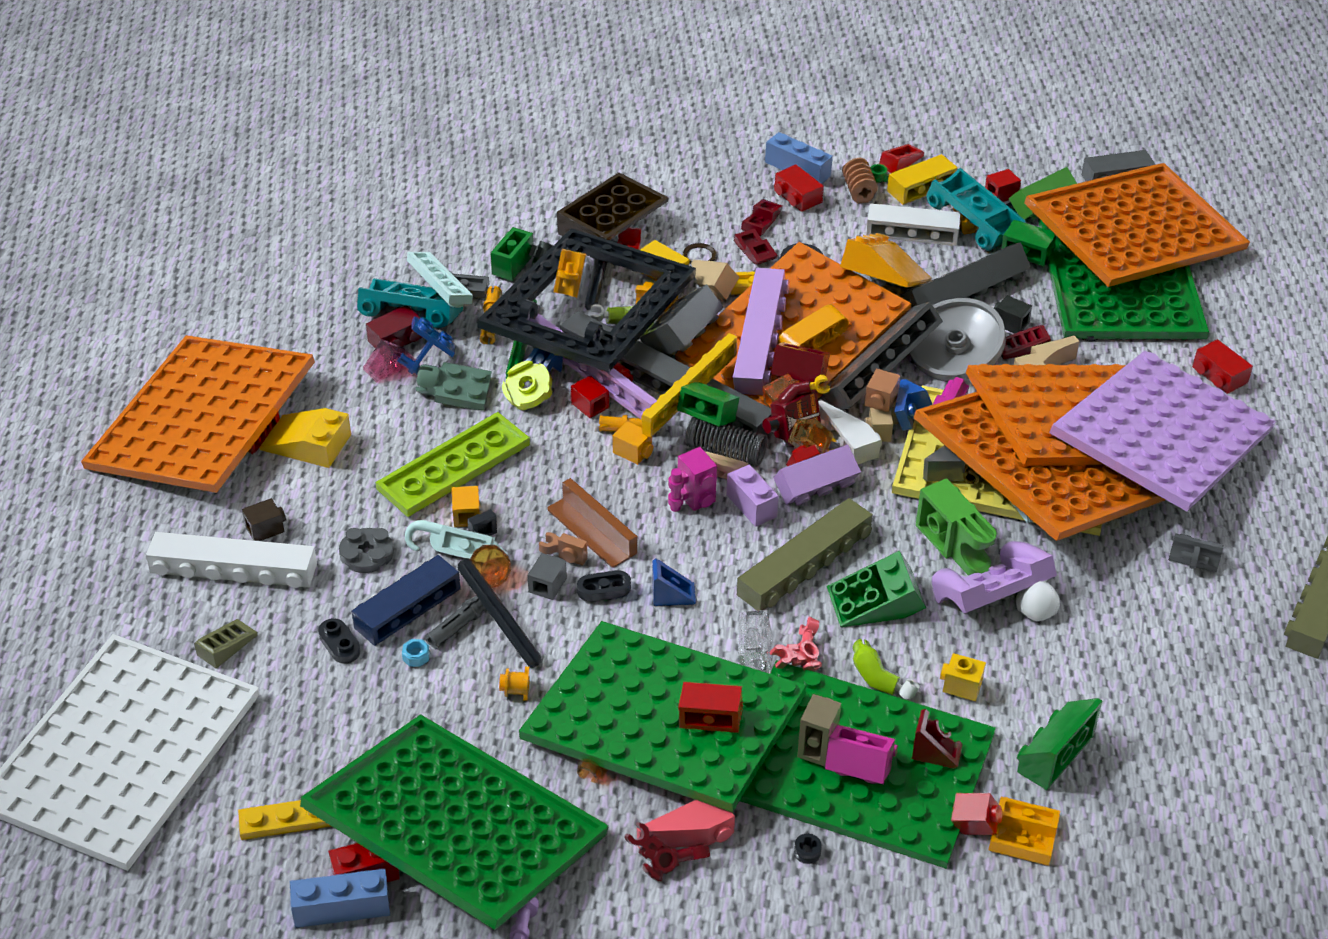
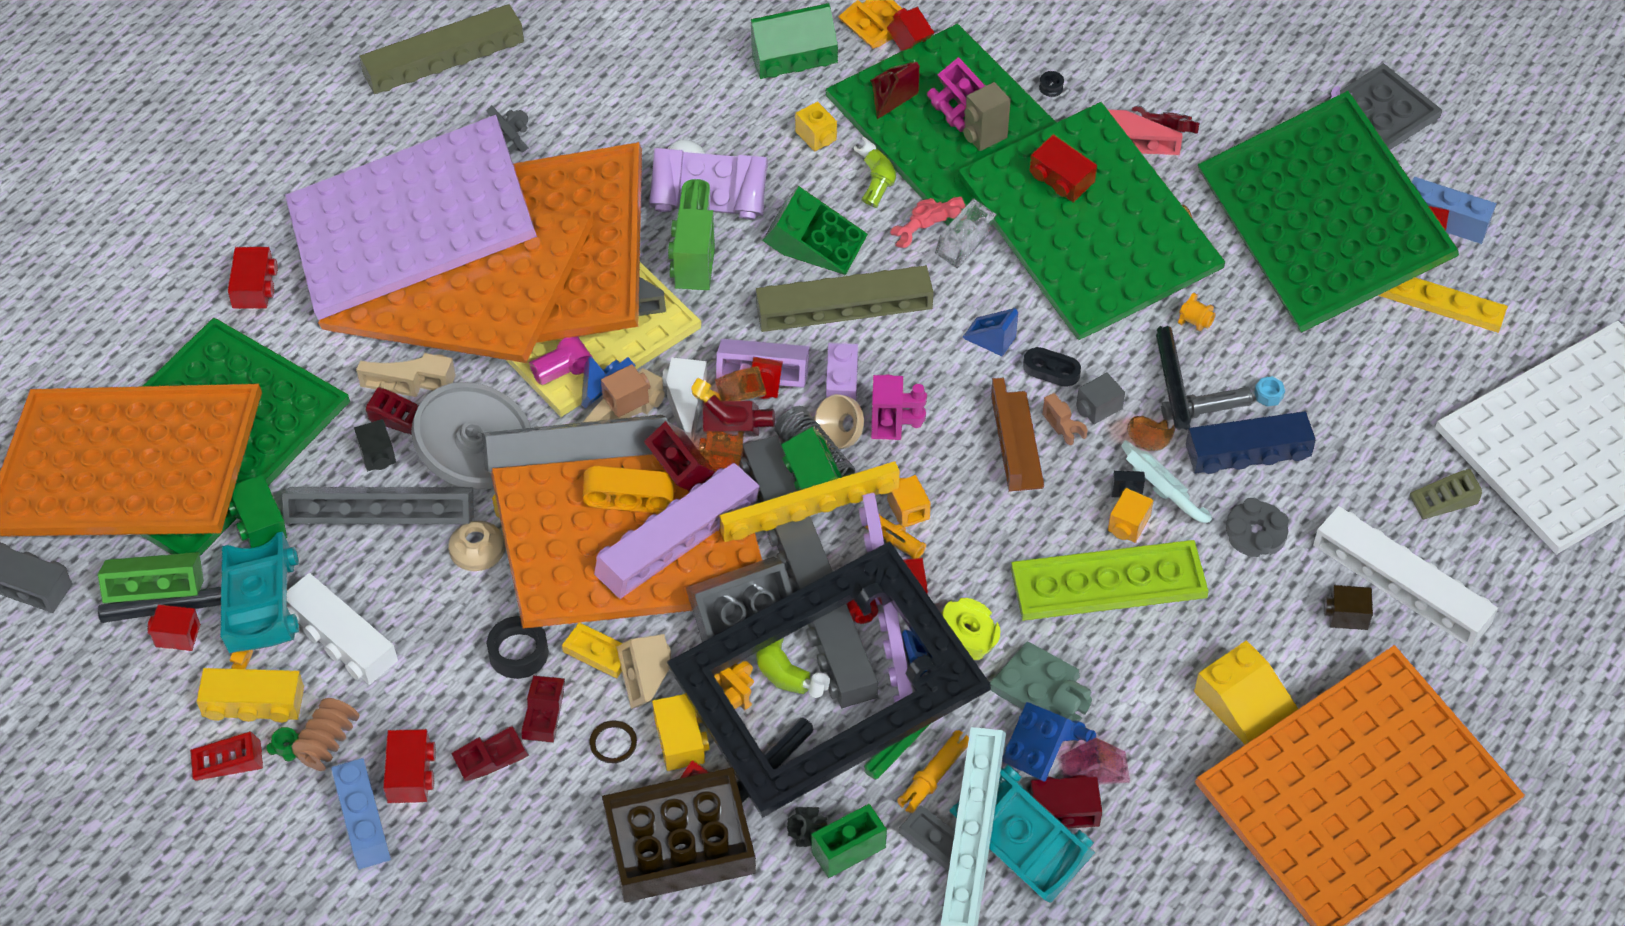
camera: 145 degrees left, 10 degrees up
(336, 635) = (1334, 441): black plate -> none
(569, 273) = (845, 671): light orange hips -> none
(882, 260) = (455, 552): light orange slope -> none

